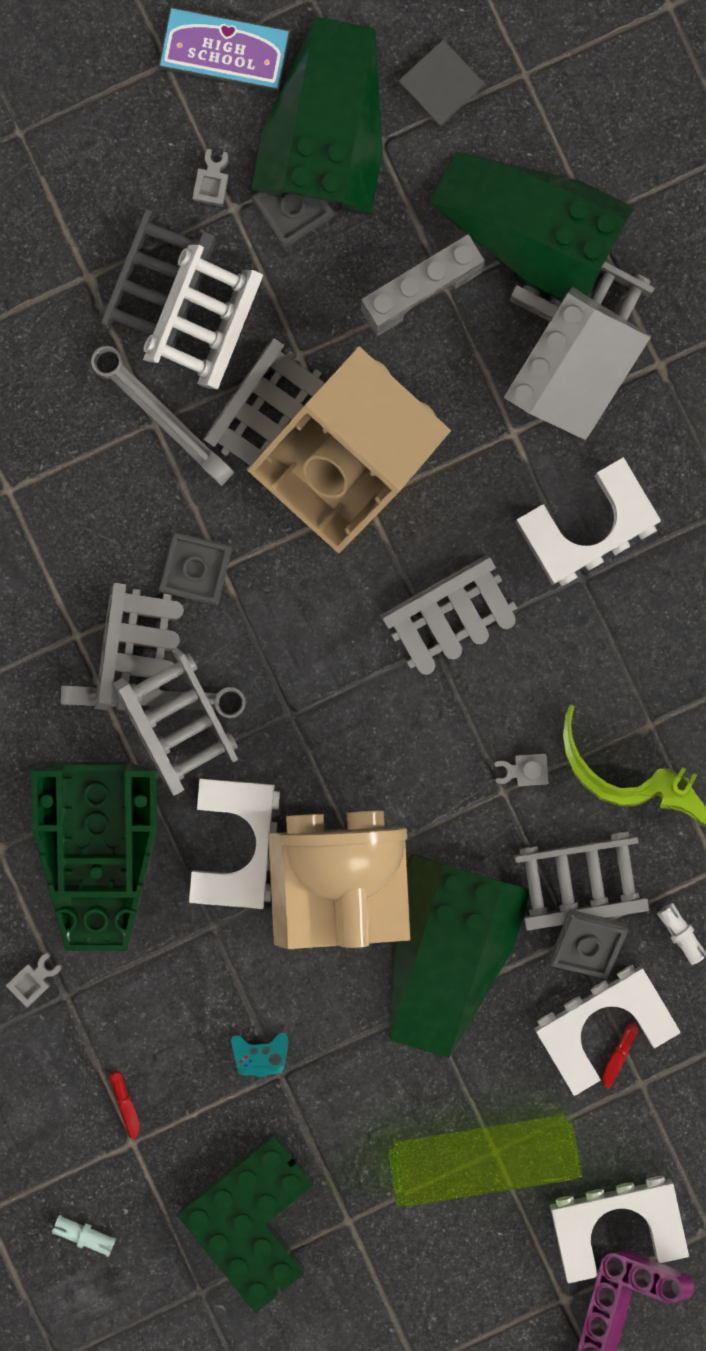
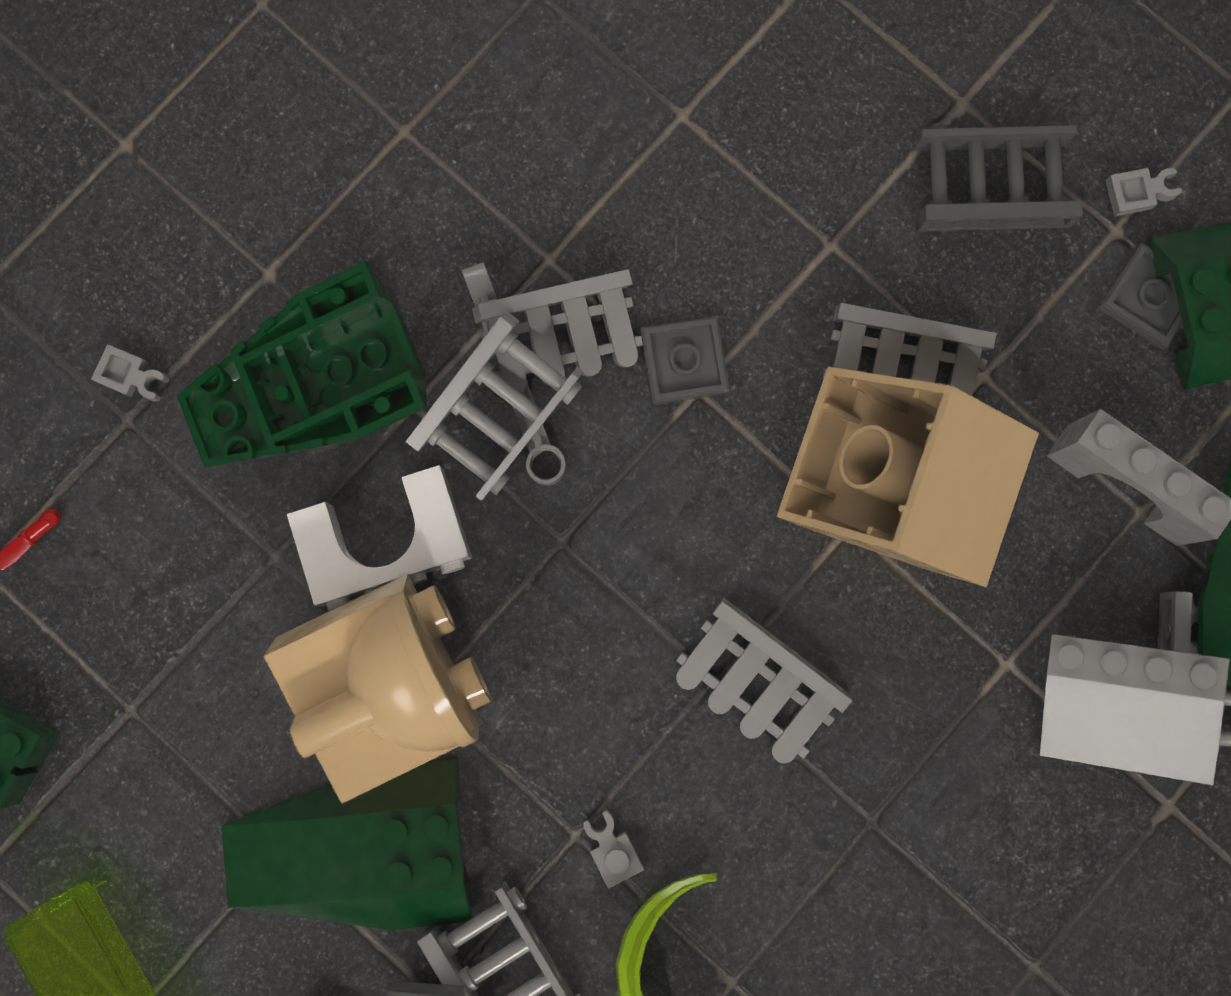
camera: 70 degrees right, 5 degrees down
(164, 417) = (845, 247): light grey piece -> none
(232, 315) = (999, 274): white fence -> none
(262, 1058) = (135, 678): teal piece -> none
(632, 517) = (977, 851): white arch -> none

